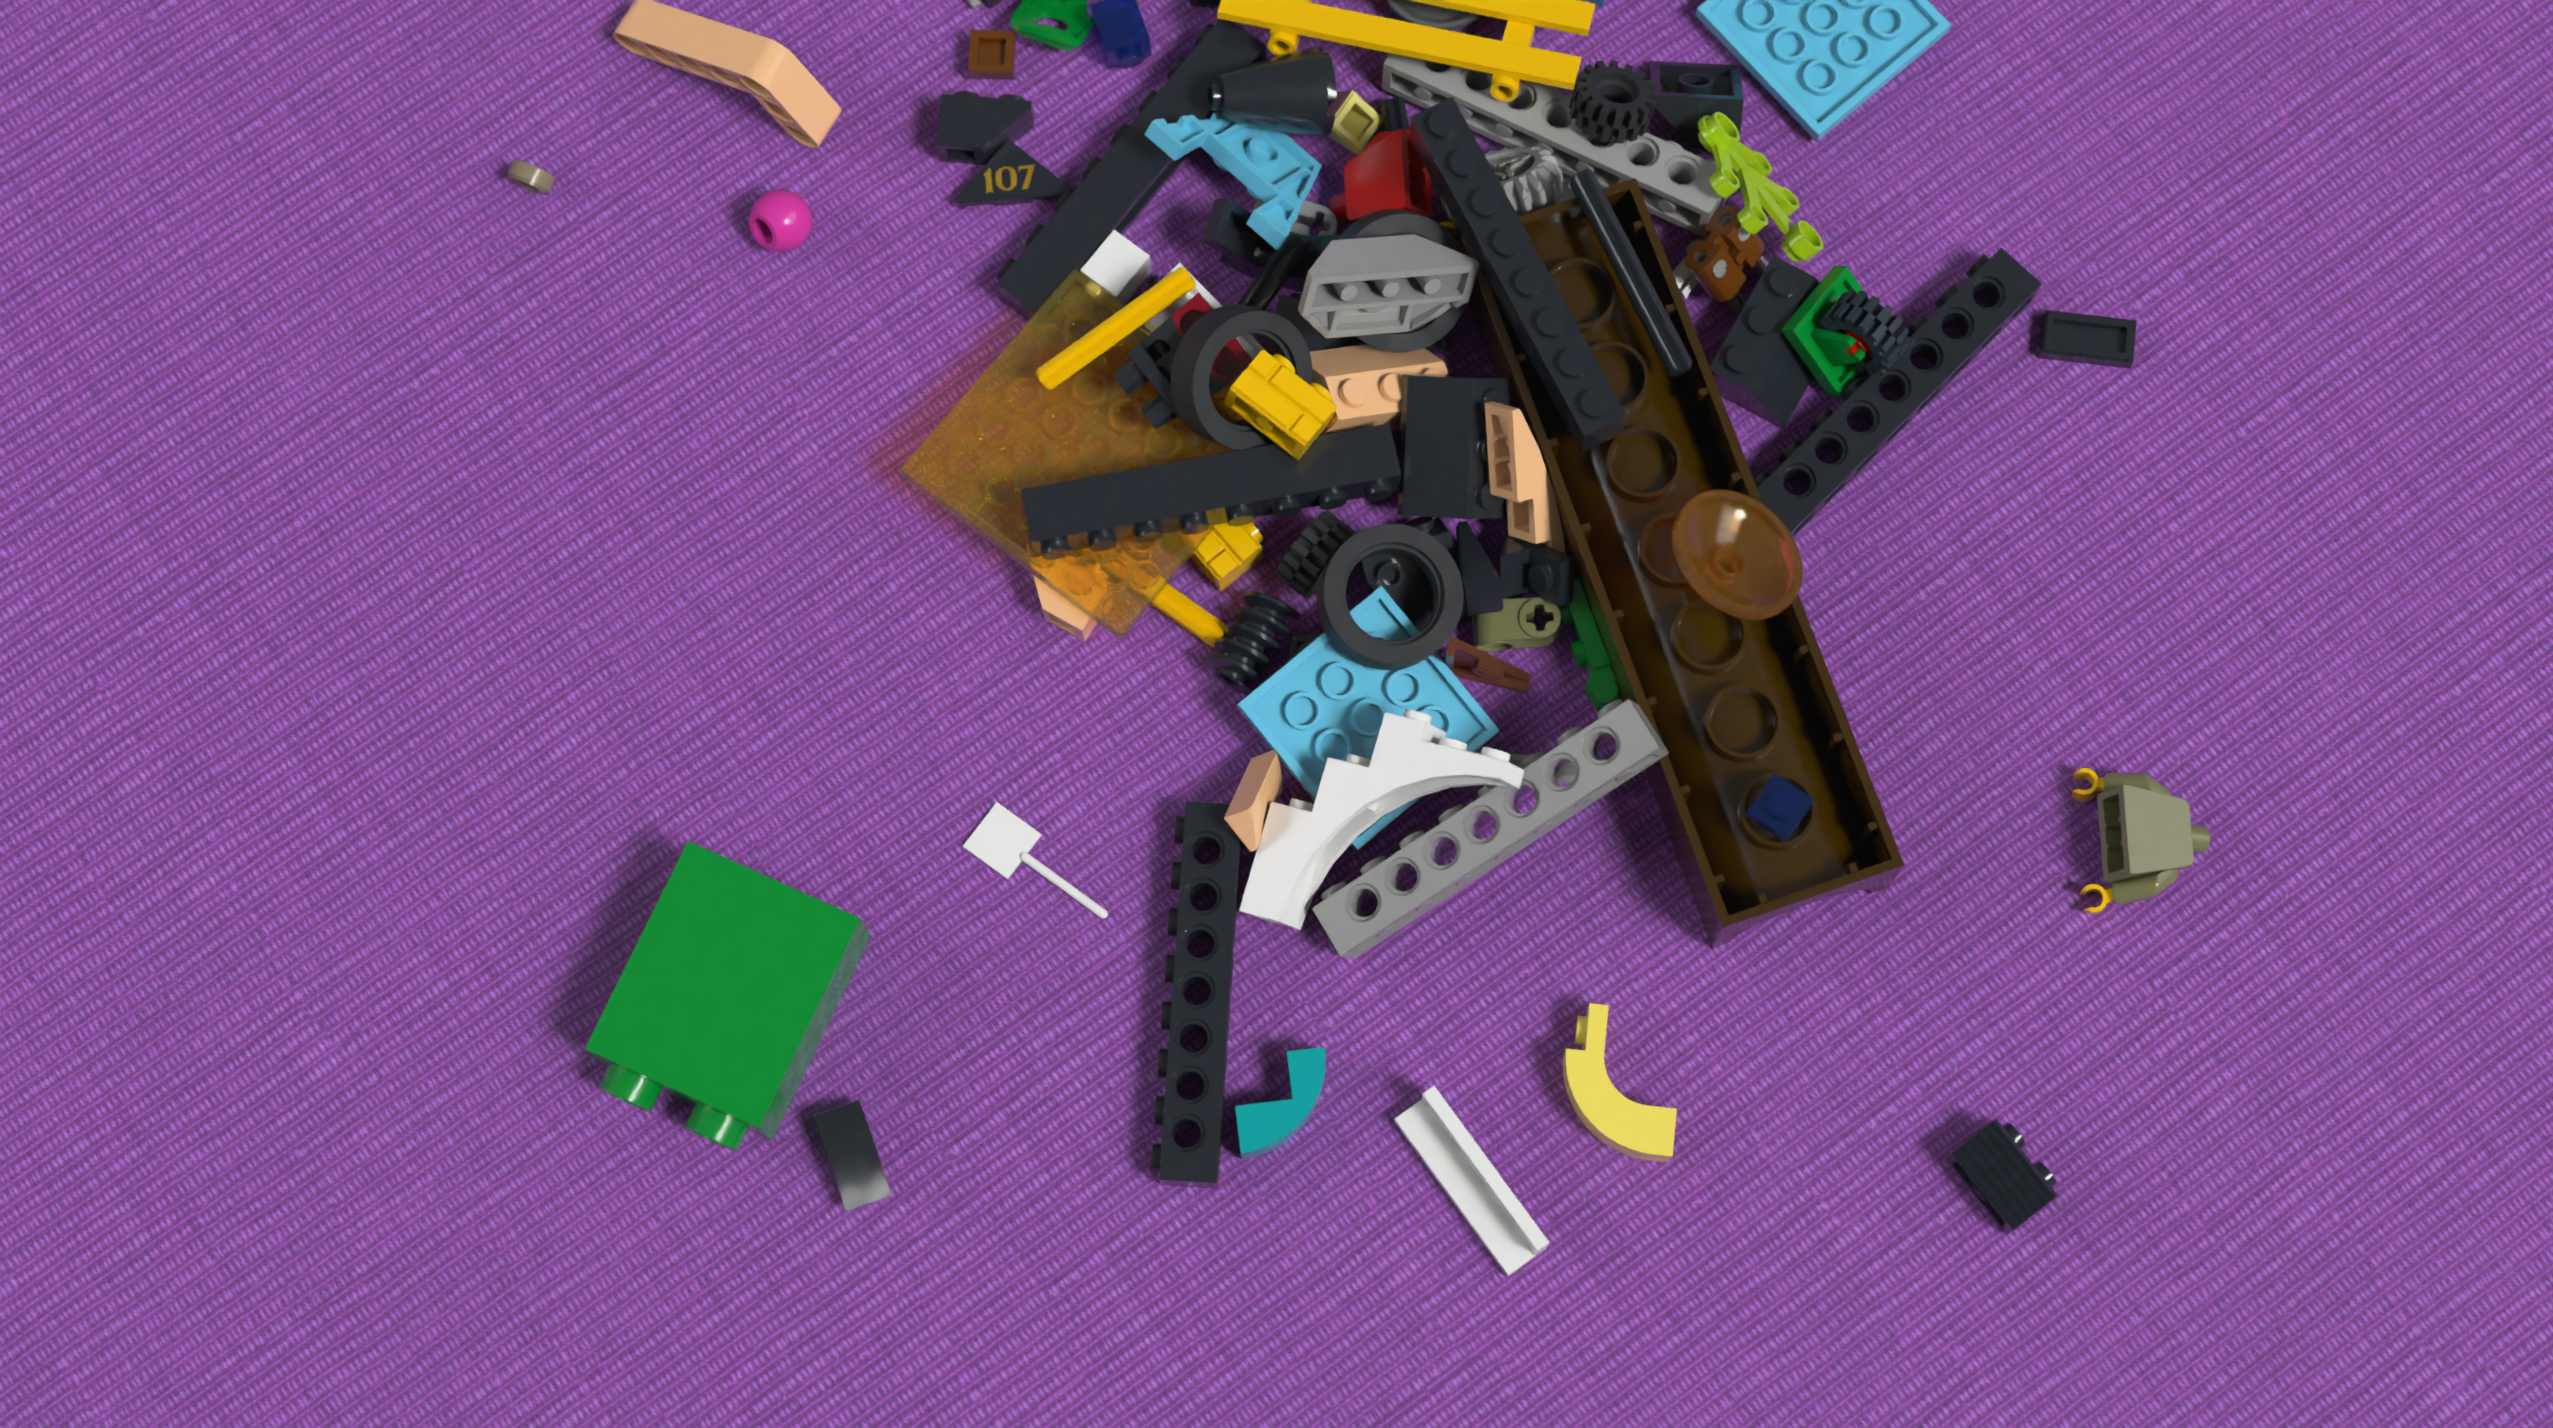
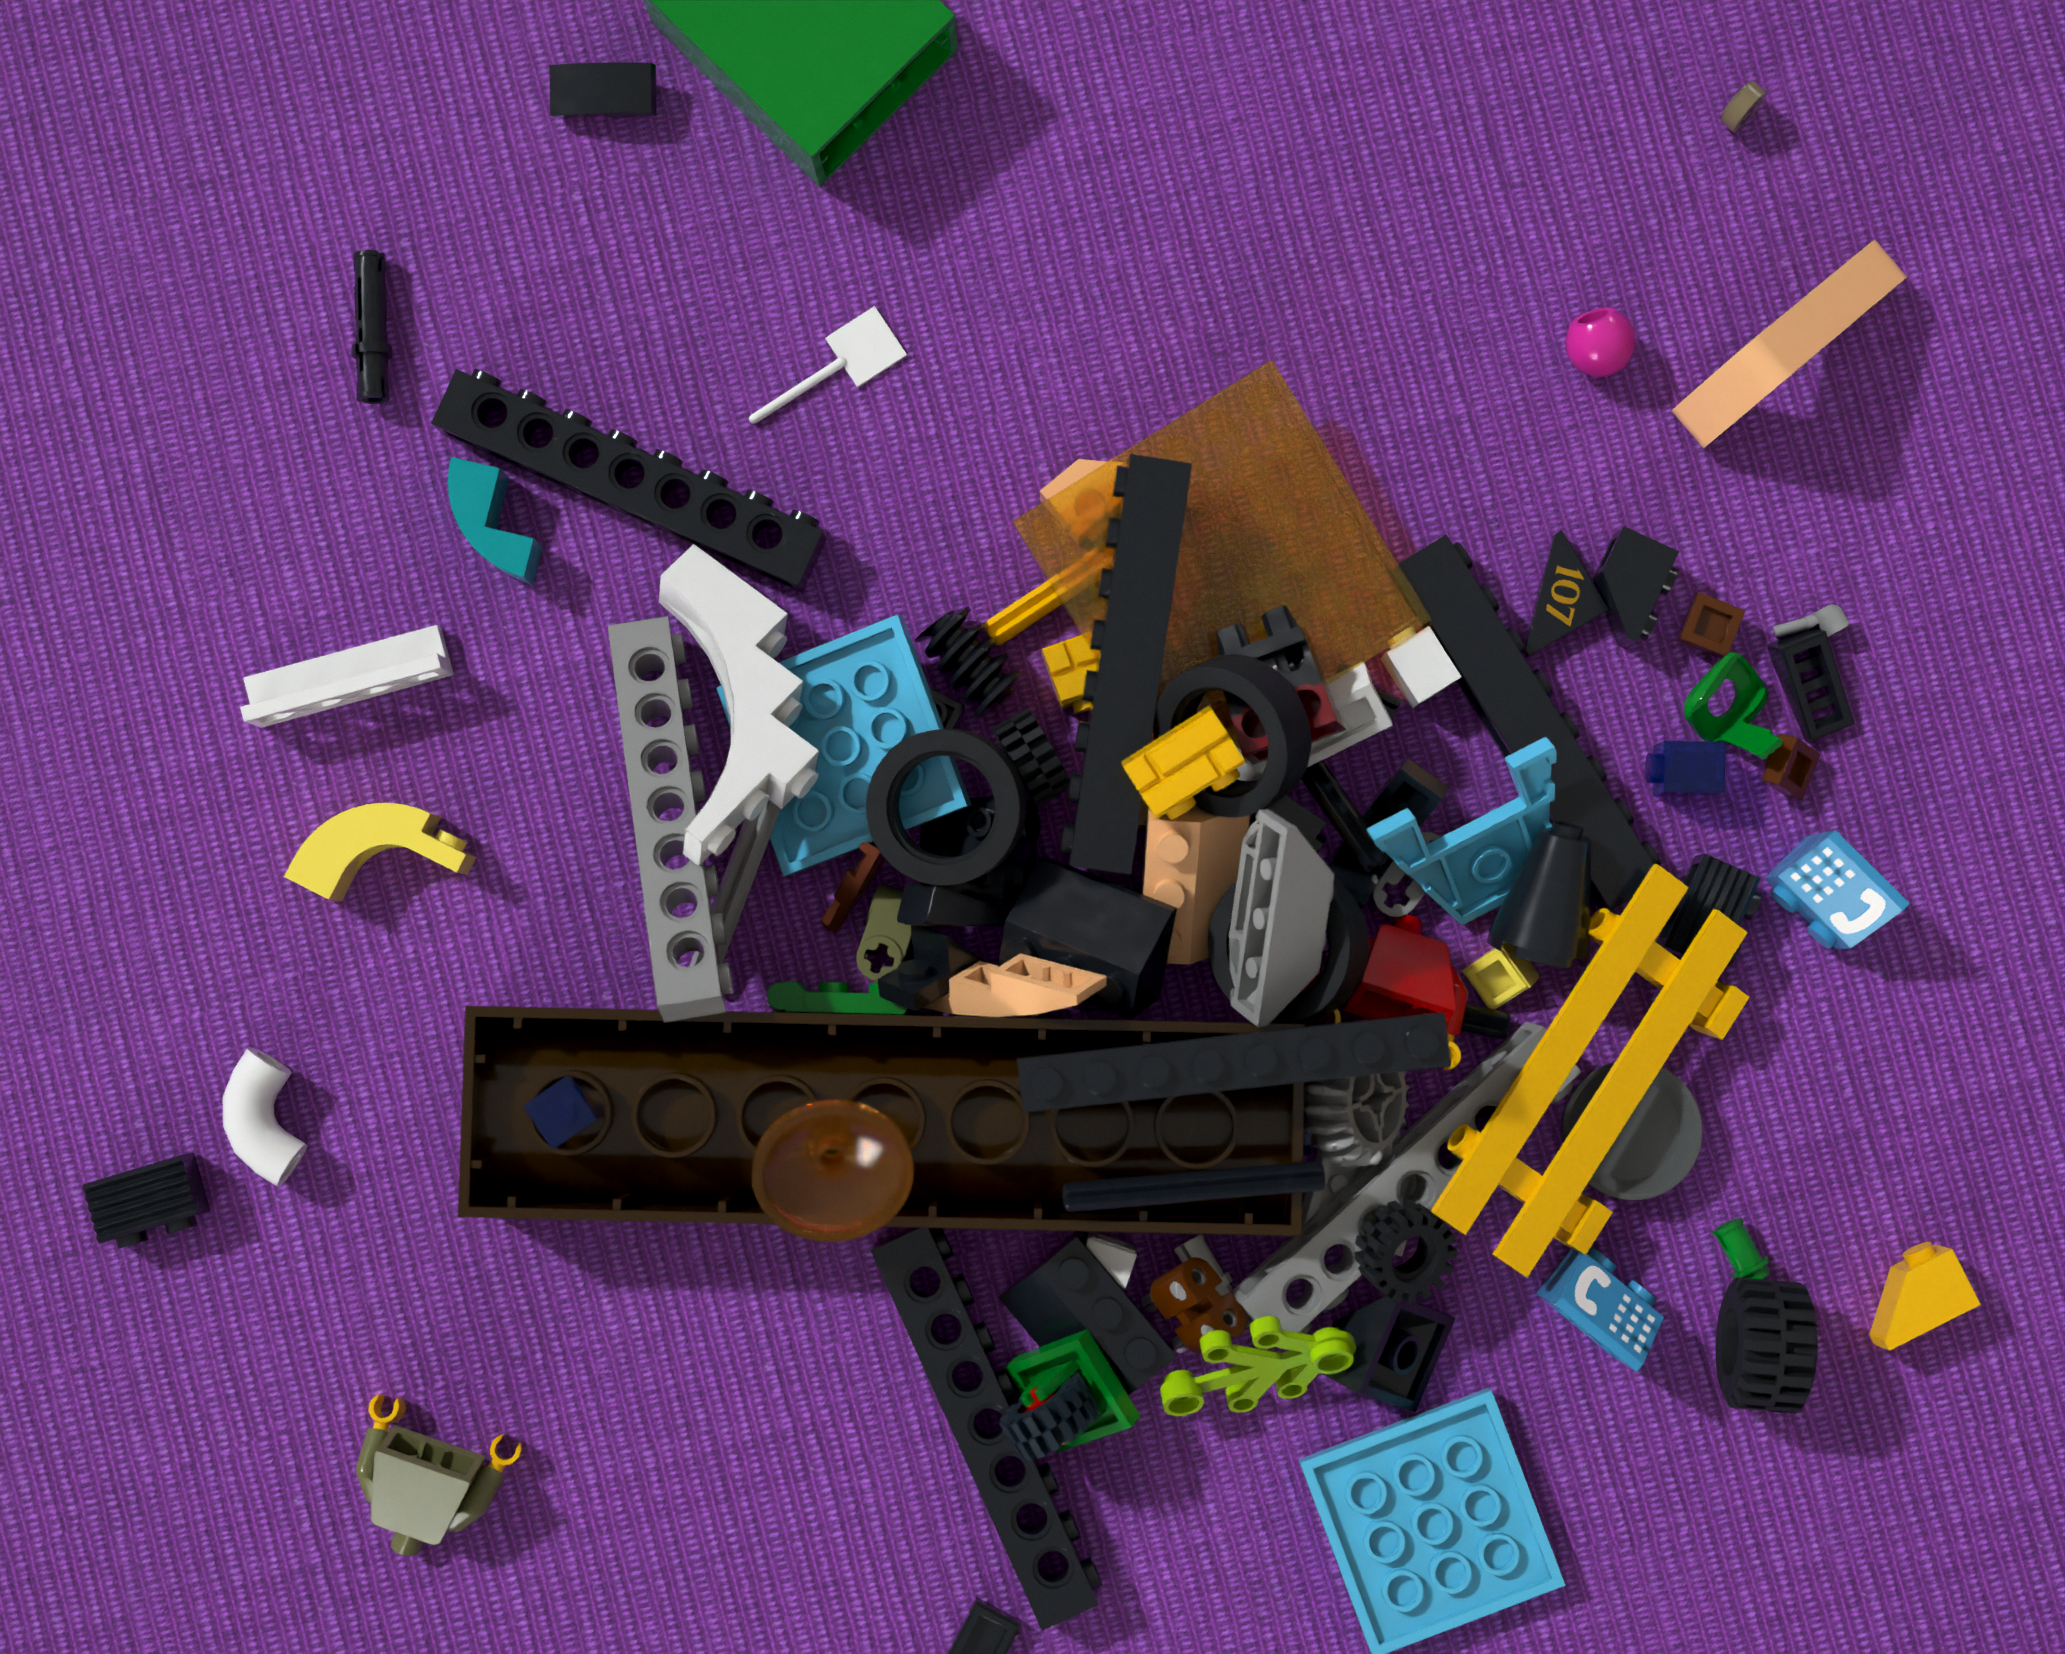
camera: 110 degrees right, 10 degrees up
(1115, 328) = (1339, 629): yellow axle -> none
(1145, 1284) = (371, 331): none -> black pin
(1253, 797) = (805, 603): light nougat slope -> none
(1712, 335) = (1113, 1254): none -> white slope
(1896, 1110) = (251, 1117): none -> white cylinder

